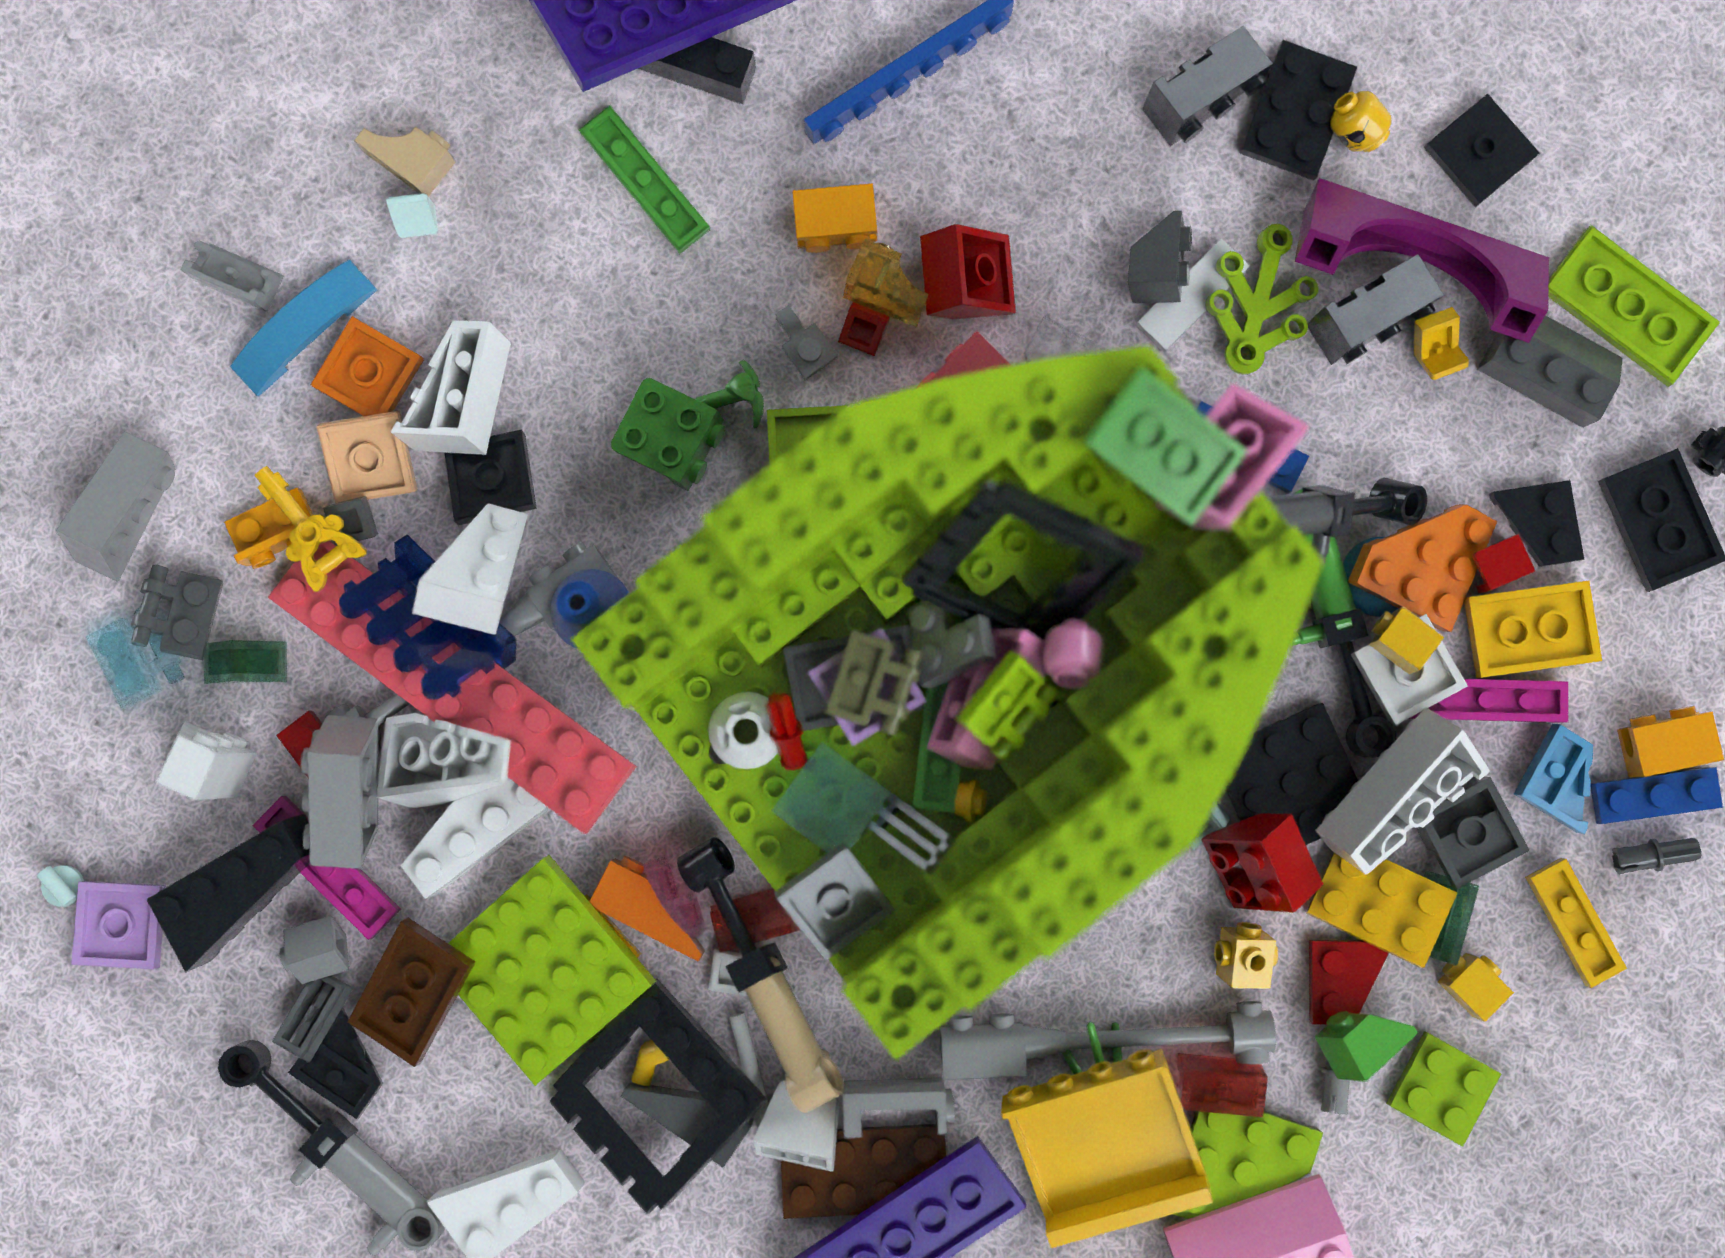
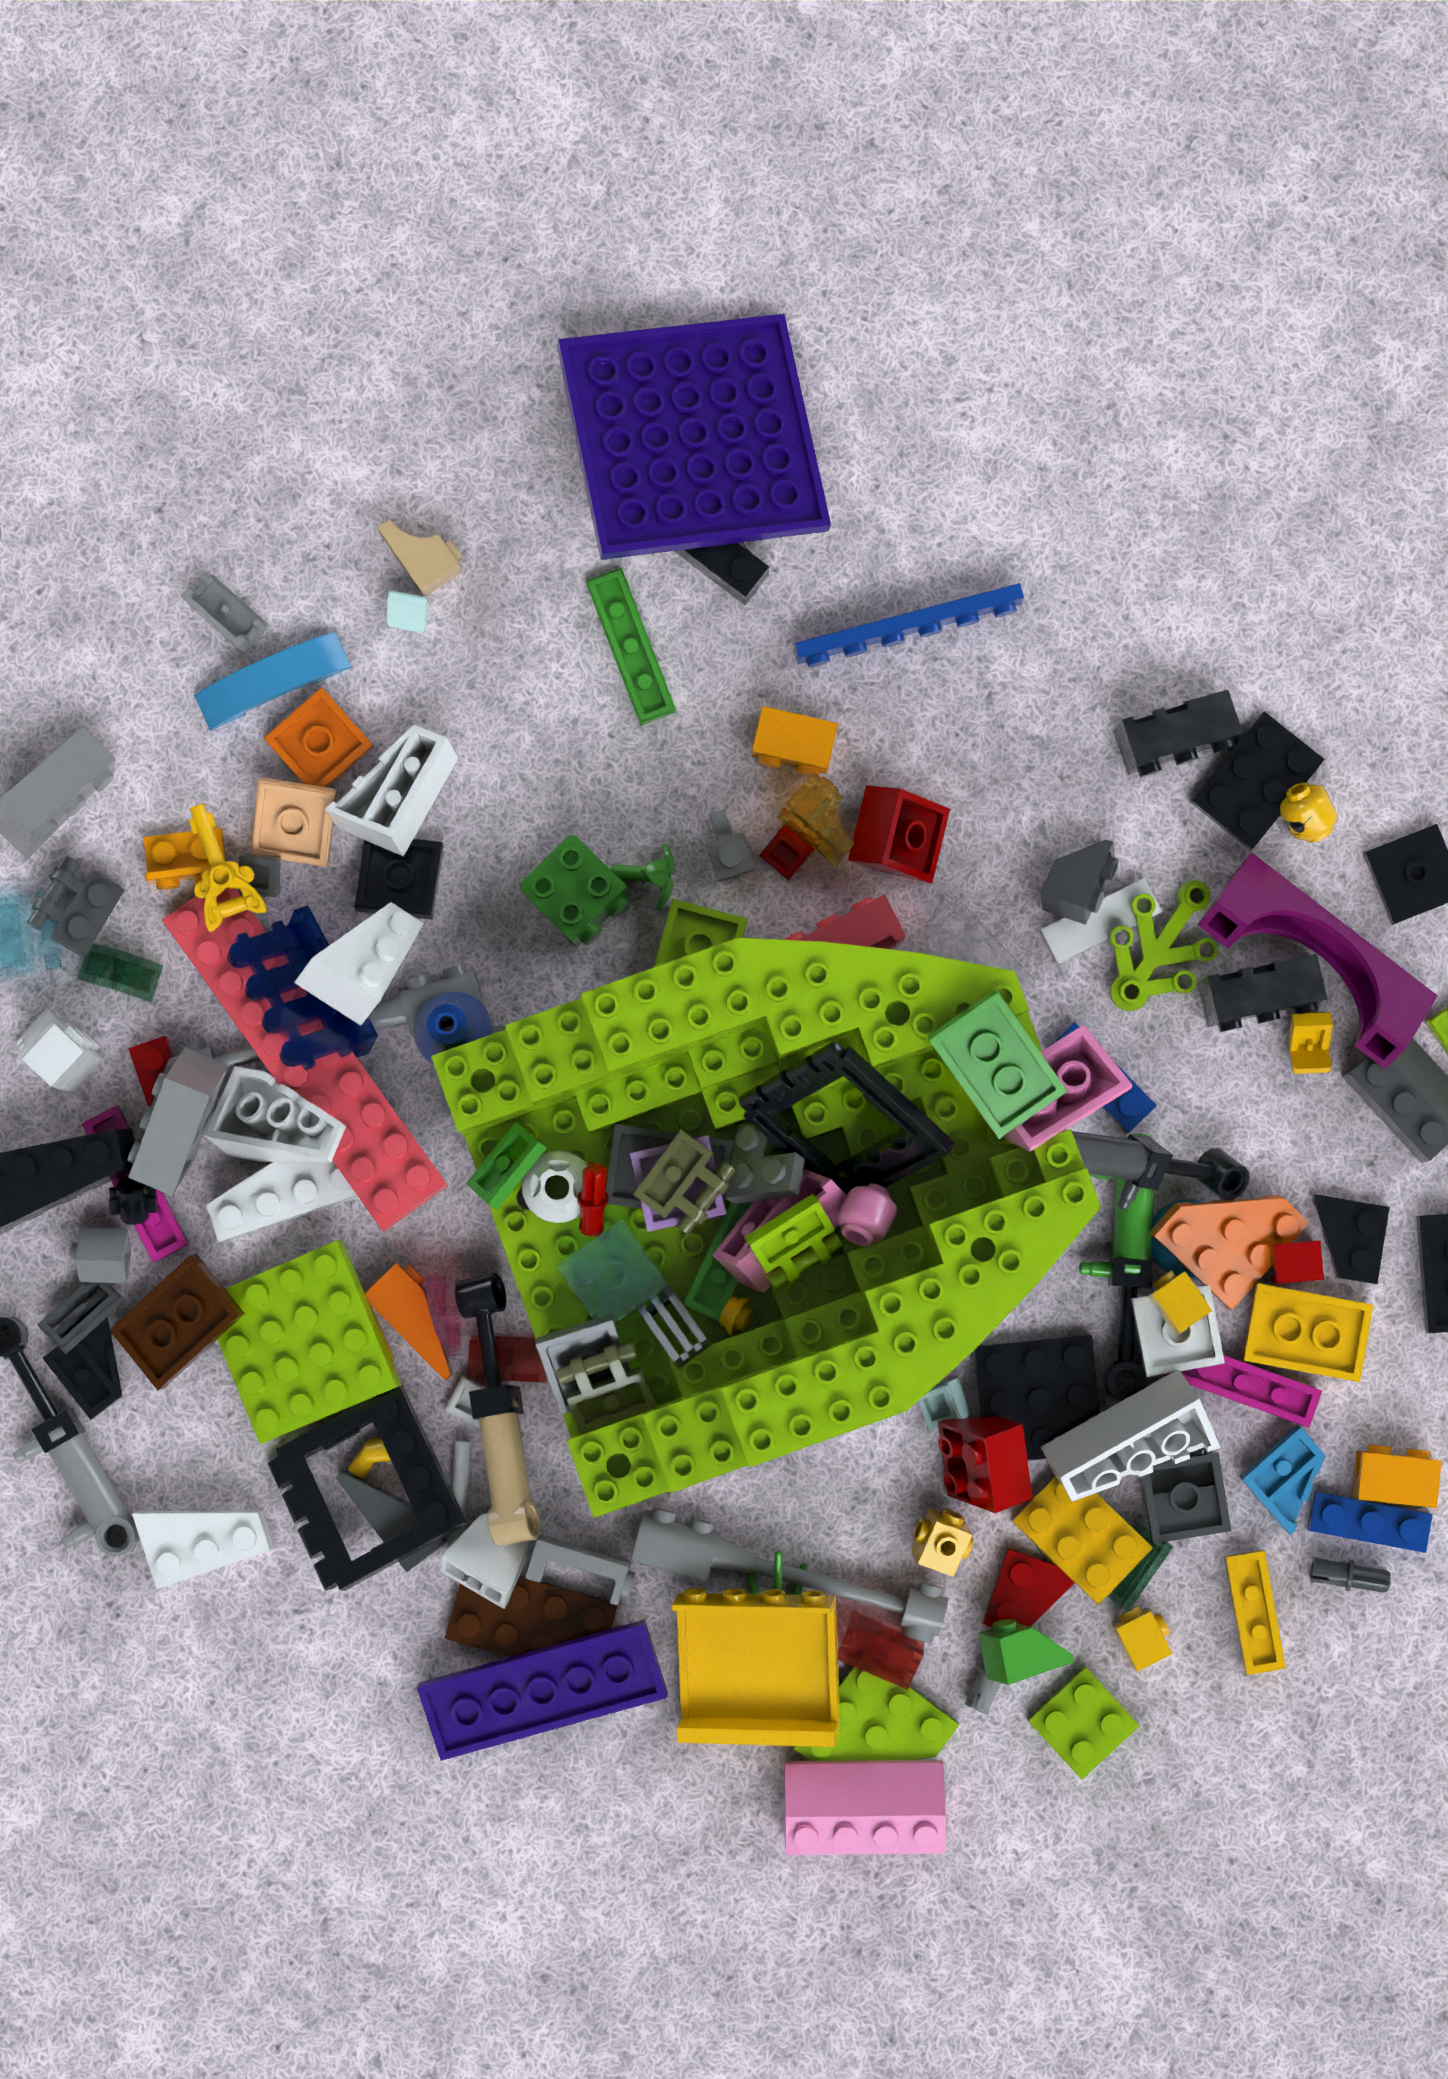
camera: 15 degrees right, 0 degrees up
(325, 887) = (132, 1201): none -> black gear
(687, 726) = (506, 1165): none -> bright green plate
(871, 928) = (610, 1398): none -> olive plate

